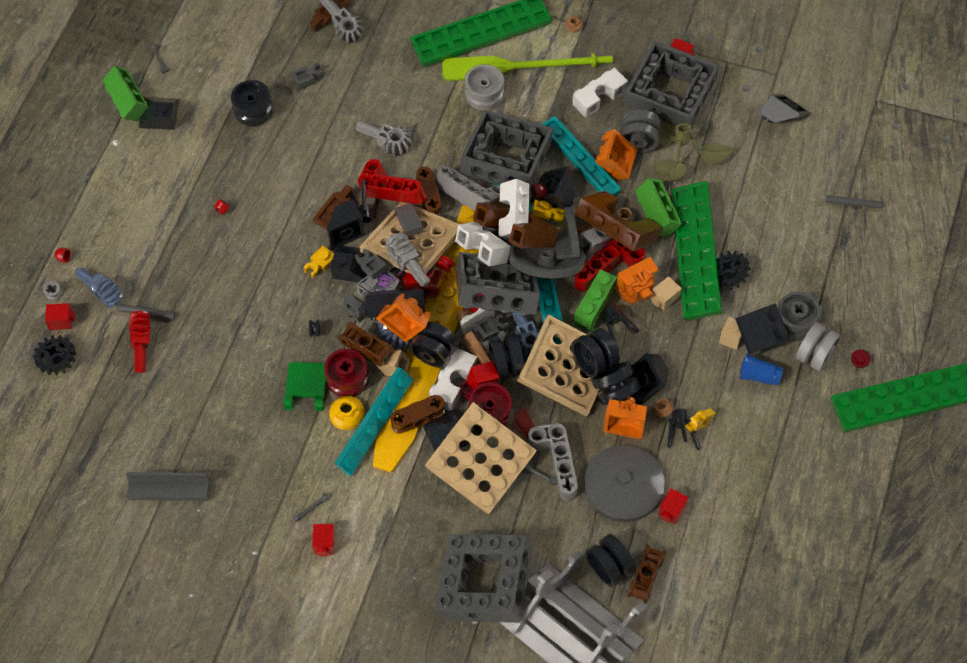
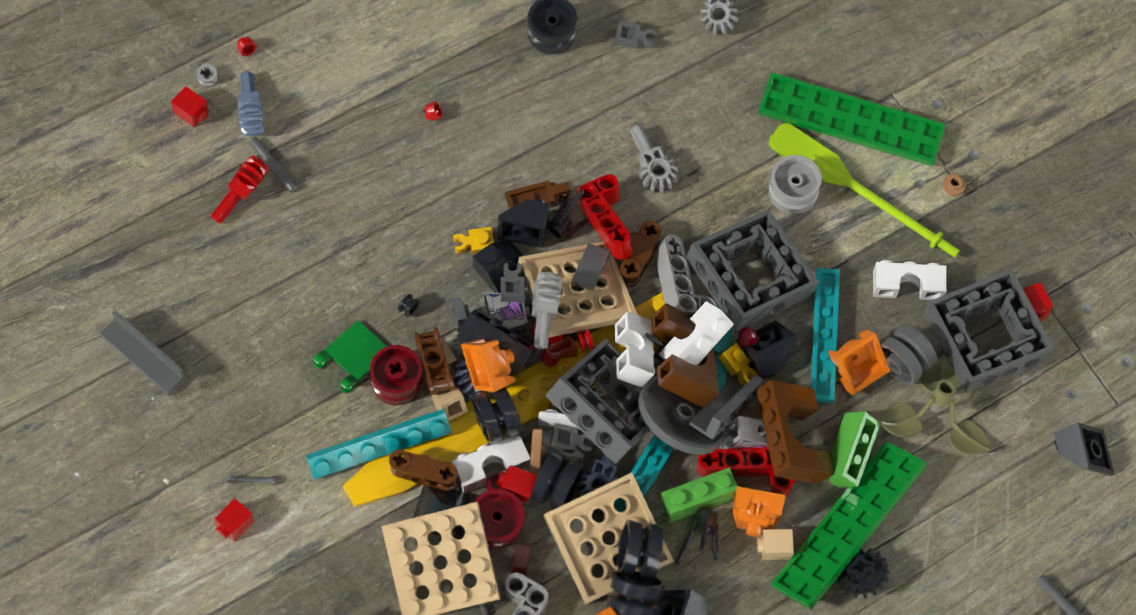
camera: 35 degrees right, 5 degrees up
(55, 356) = (149, 150): black gear -> none
(348, 420) = (365, 424): yellow piece -> none
(624, 212) = (814, 425): medium nougat plate -> none

